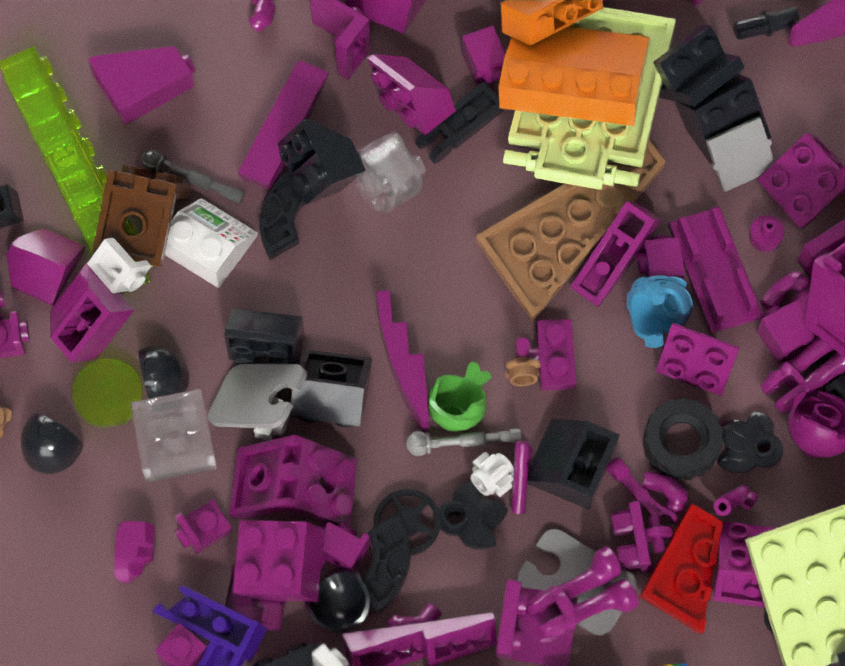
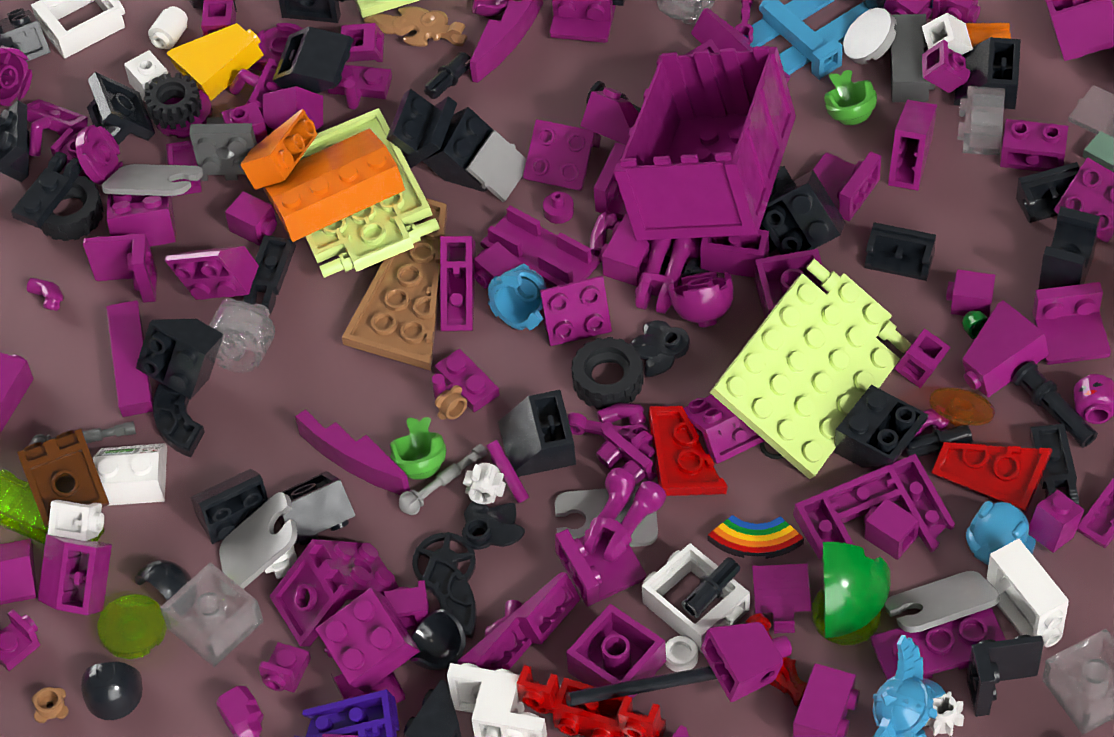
camera: 30 degrees left, 15 degrees down
(739, 496) = (679, 385): magenta arm -> none

